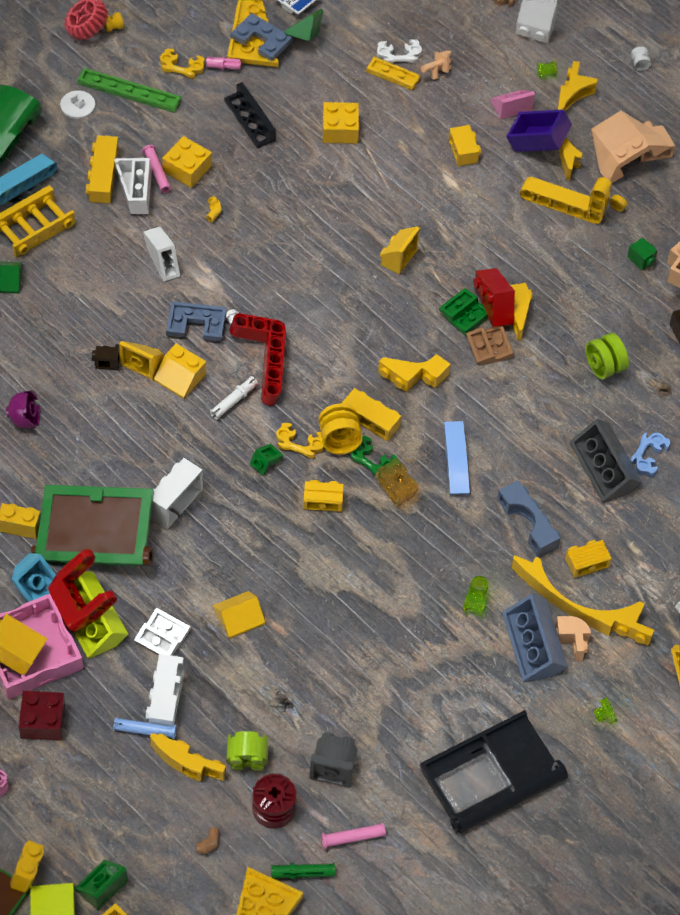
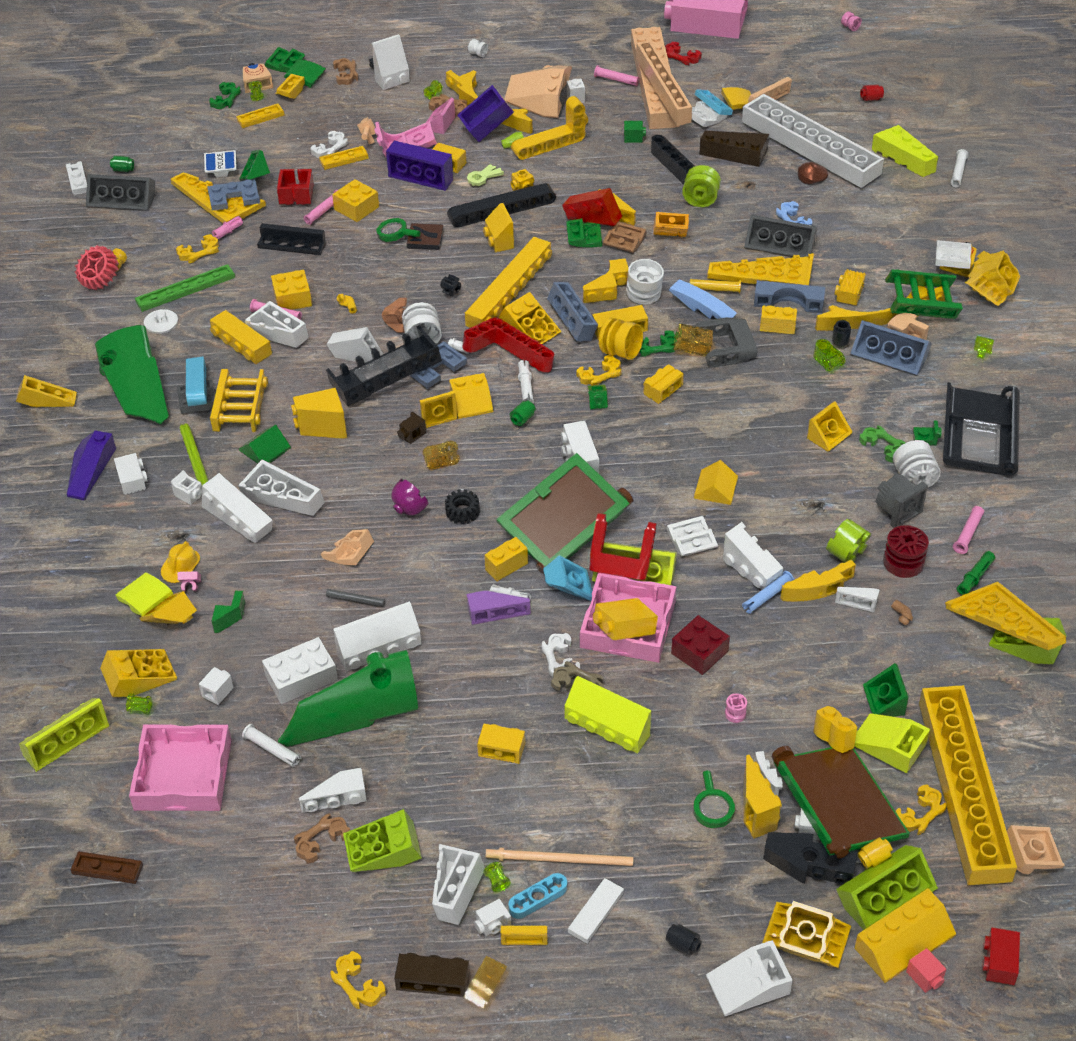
camera: 45 degrees left, 10 degrees down
(52, 443) = (464, 514): none -> black tyre
(60, 286) = (319, 414): none -> yellow slope
(94, 398) = (439, 455): none -> clear yellow piece
(154, 290) = (385, 369): none -> black window
(193, 420) = (522, 413): none -> green brick
(196, 802) = (858, 597): none -> white slope
(224, 279) = (425, 316): none -> white wheel
(225, 253) = (393, 314): none -> nougat brick
(299, 263) = (450, 285): none -> black gear
(306, 107) = (319, 210): none -> bright pink pin
(309, 69) = (290, 192): none -> red piece
(309, 350) = (530, 319): none -> yellow slope
(333, 175) = (394, 229): none -> green piece
(344, 302) = (509, 282): none -> yellow brick
(347, 370) = (572, 311): none -> sand blue brick
(349, 202) = (429, 239): none -> tile
(381, 653) = (828, 427): none -> yellow slope
(386, 747) = (917, 463): none -> white wheel
(407, 691) = (871, 435): none -> bright green helmet
(425, 134) = (419, 165): none -> dark purple brick
(434, 397) = (644, 281): none -> white wheel
(434, 519) = (741, 339): none -> dark grey connector
(441, 227) = (513, 201): none -> black beam
(445, 101) = (419, 136): none -> bright pink bracket
(445, 734) = (928, 434): none -> green bracket
(462, 184) = (478, 178): none -> yellowish green piece
(482, 221) = (521, 180): none -> yellow brick
(486, 529) = (778, 319): none -> yellow brick
(491, 453) = (717, 285): none -> yellow pin
(512, 589) = (841, 333): none -> black brick
(534, 367) = (670, 224): none -> light orange brick
(537, 83) = (437, 101): none -> medium nougat helmet
(539, 173) = (507, 142): none -> lime cone
(550, 483) = (772, 269): none -> yellow wing
(614, 639) = (921, 307): none -> green fence
(633, 308) = (670, 157): none -> black beam
(653, 172) = (576, 88): none -> white brick

